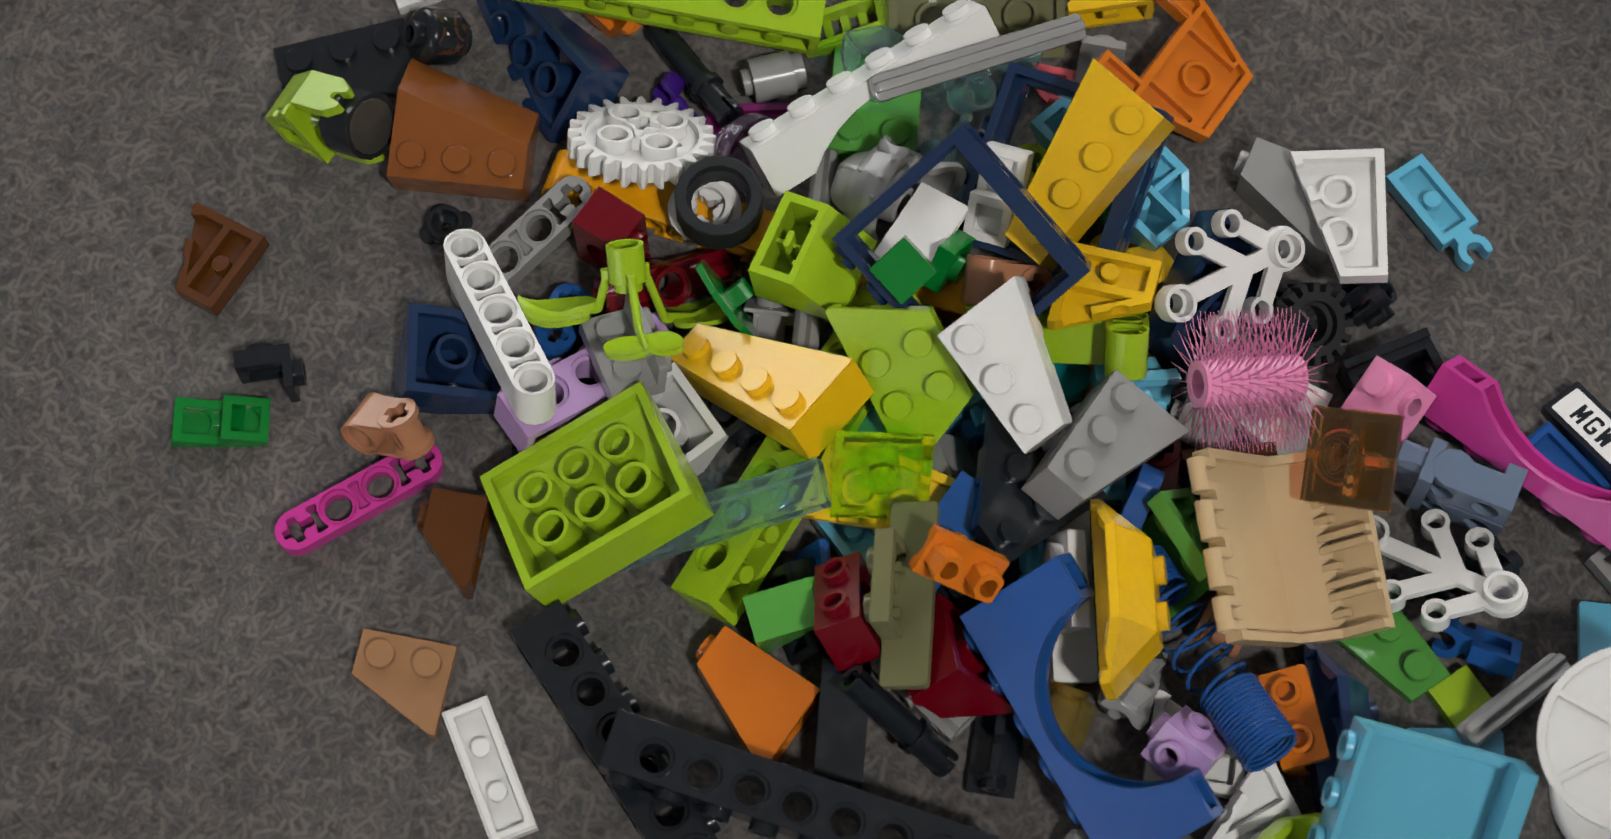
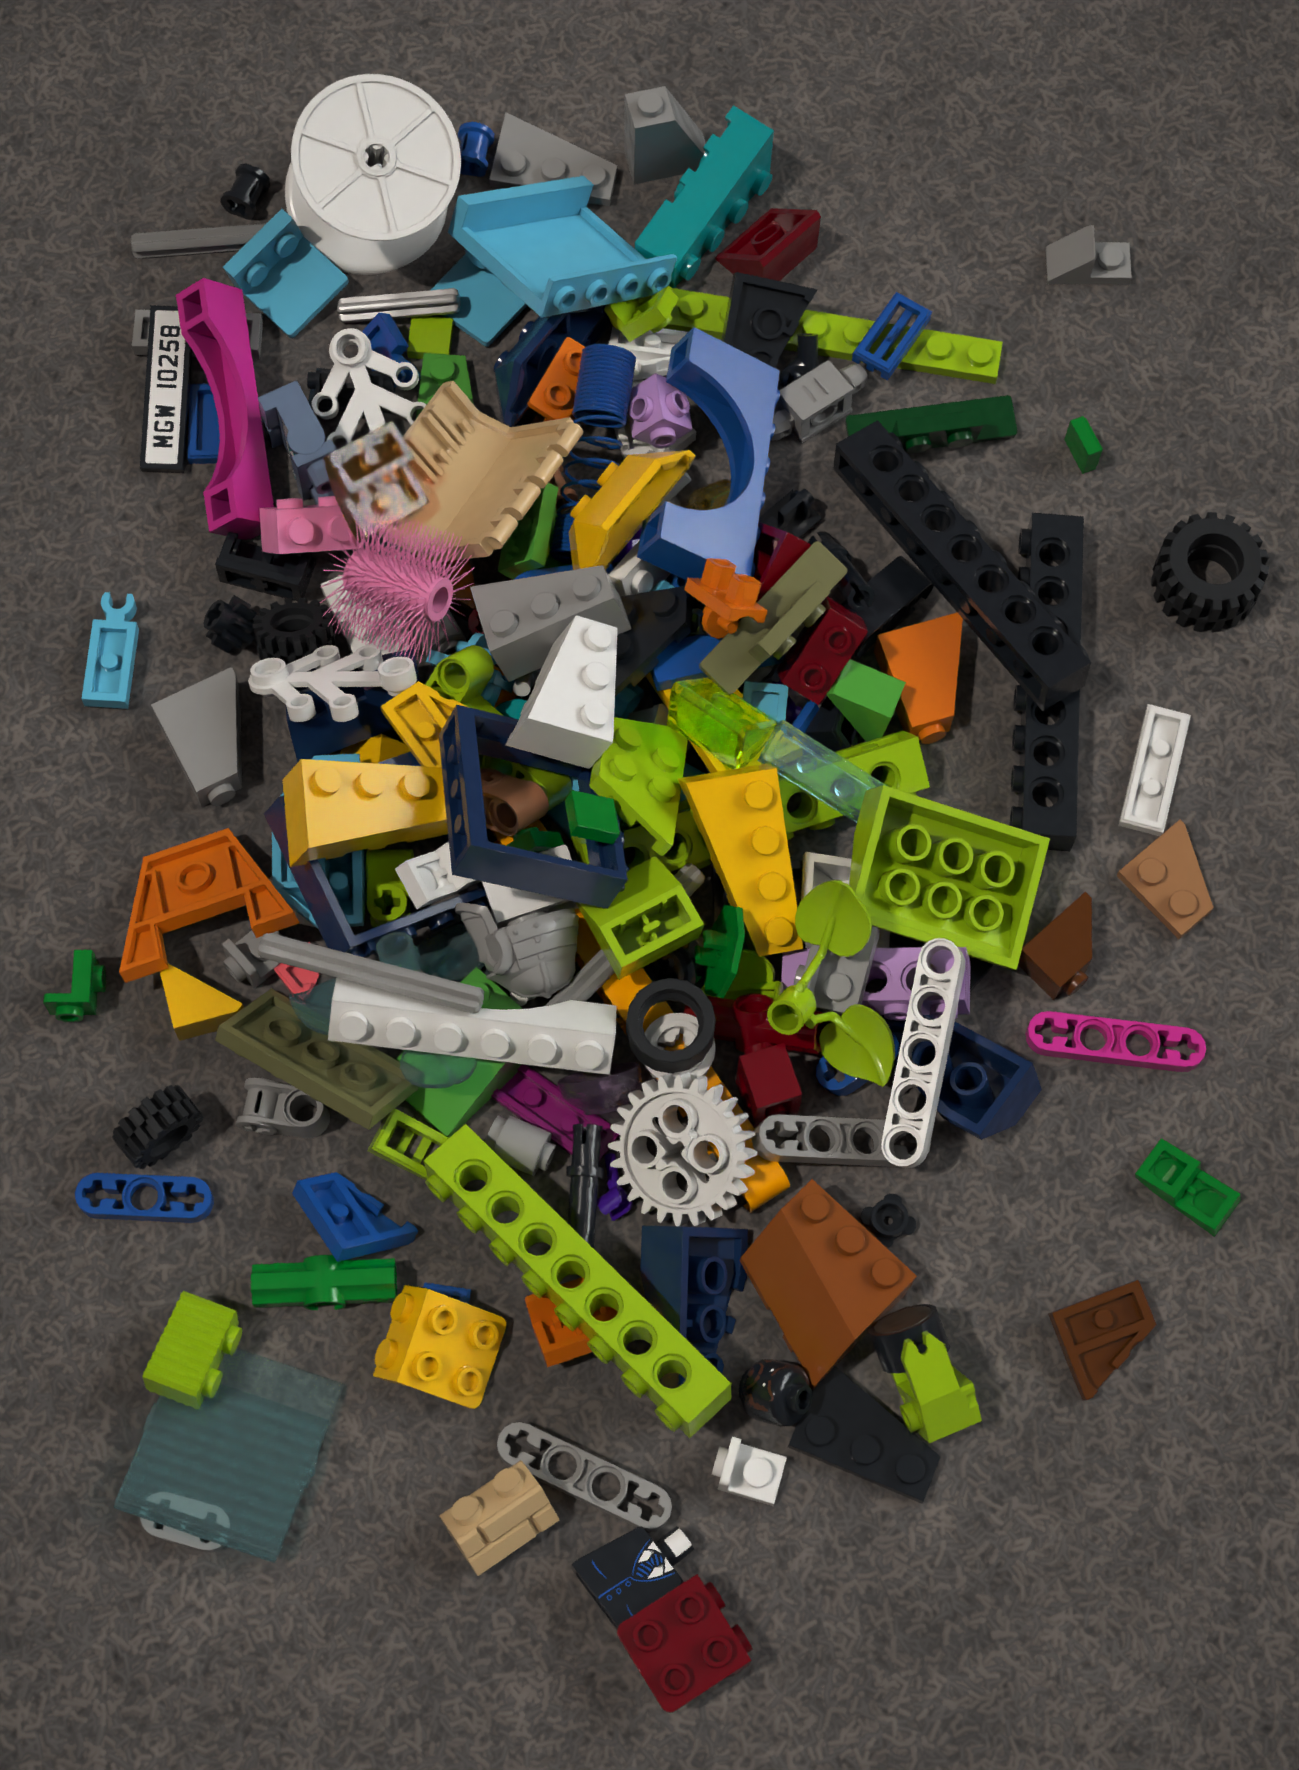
camera: 145 degrees left, 0 degrees up
(271, 362) = (1121, 1204): black bracket -> none
(388, 428) = (1060, 1072): nougat piece -> none
(1348, 208) = (188, 675): white wing -> none

